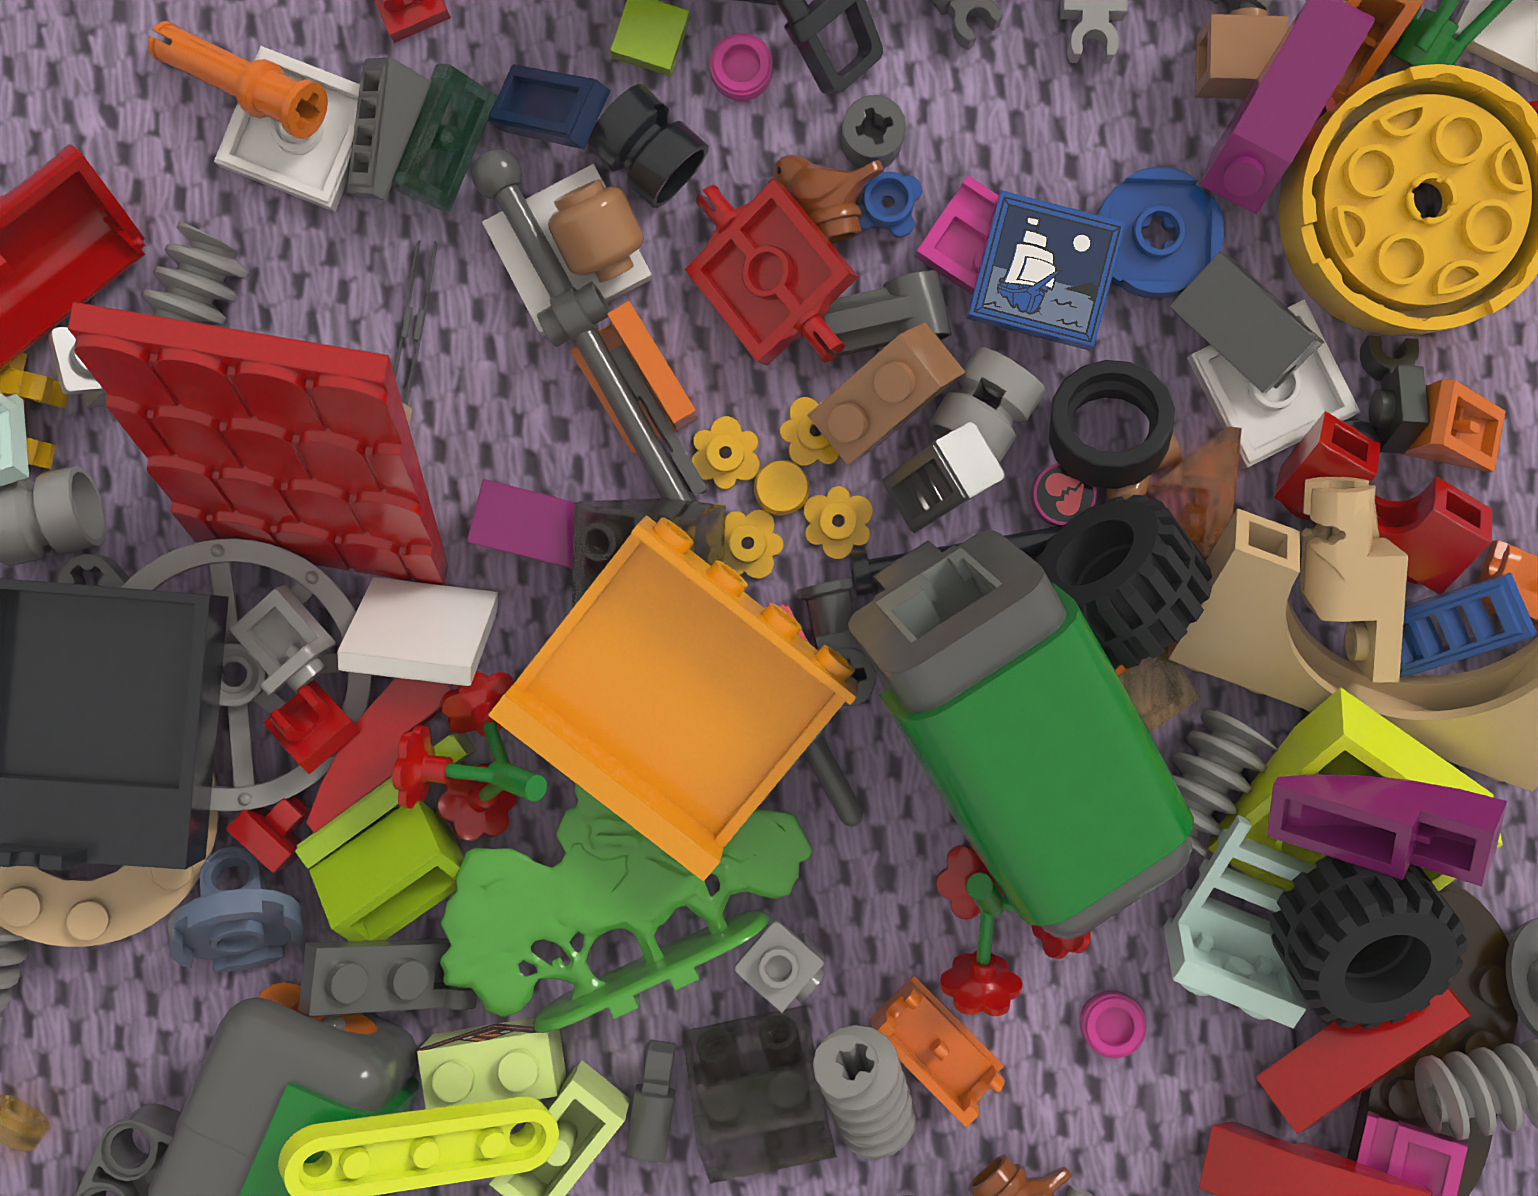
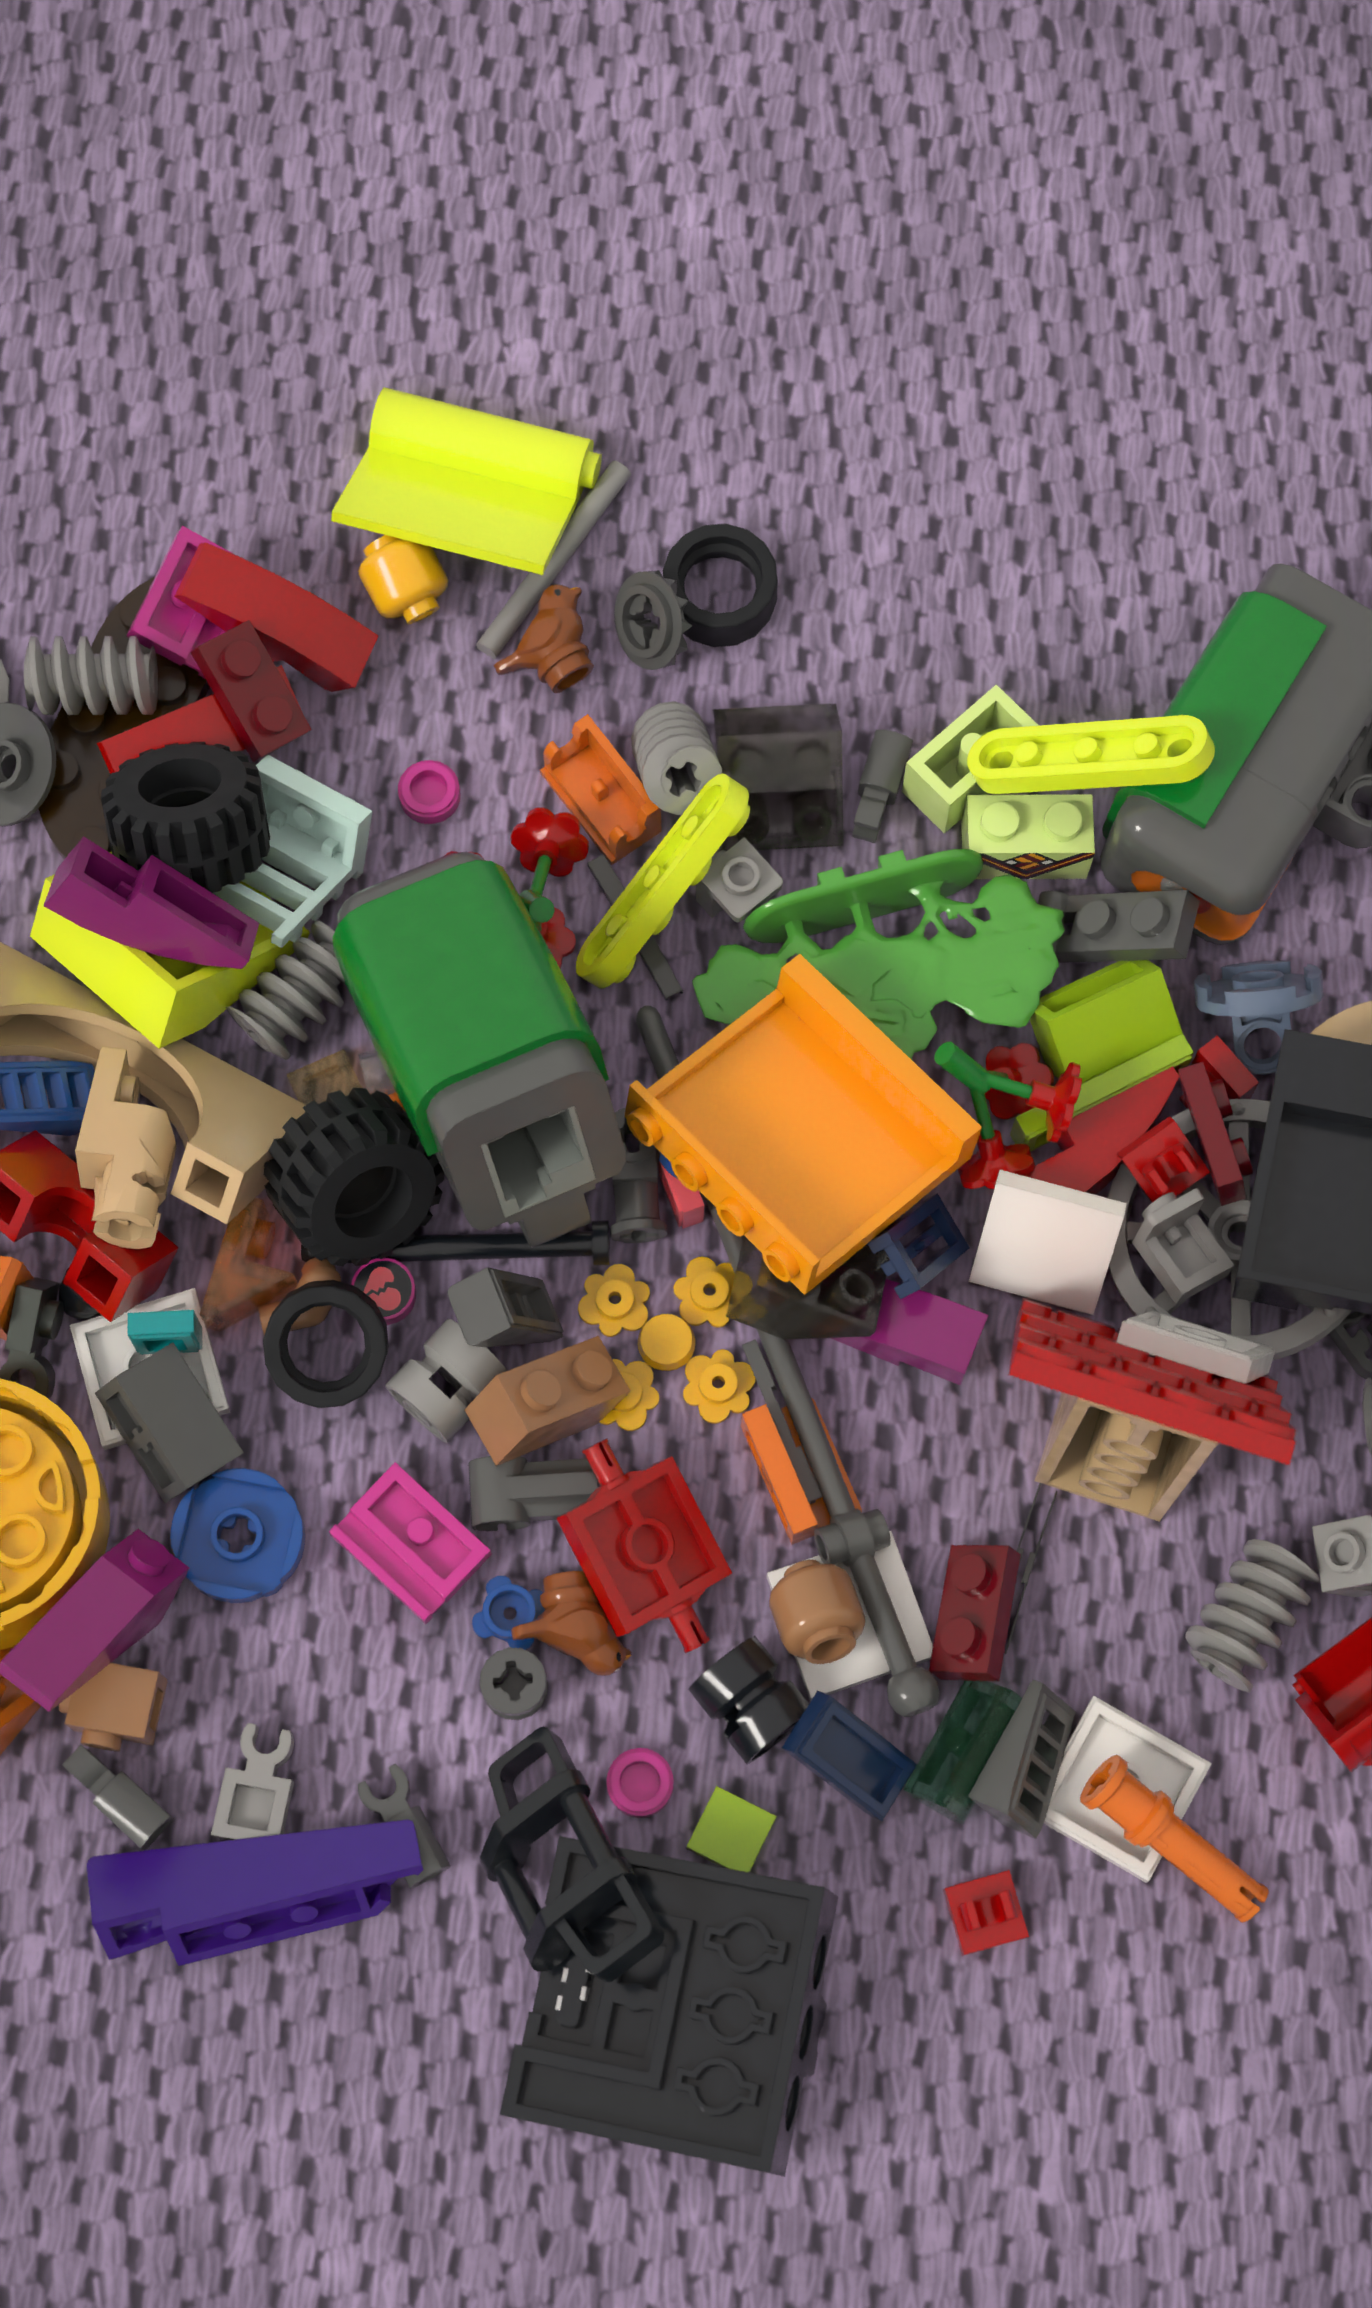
camera: 175 degrees left, 15 degrees down
(247, 524) = (1197, 1346): none -> white tile
(269, 788) = (1225, 1157): none -> dark red plate
(449, 262) = (975, 1612): none -> dark red plate
(552, 610) = (901, 1257): none -> dark blue tile
(857, 953) = (673, 866): none -> neon yellow plate
(879, 910) = (650, 951): none -> dark grey piece
(1046, 270) = (363, 1503): tile -> none
(1271, 405) = (156, 1330): none -> teal tile
(1326, 1097) = (251, 690): none -> dark red plate

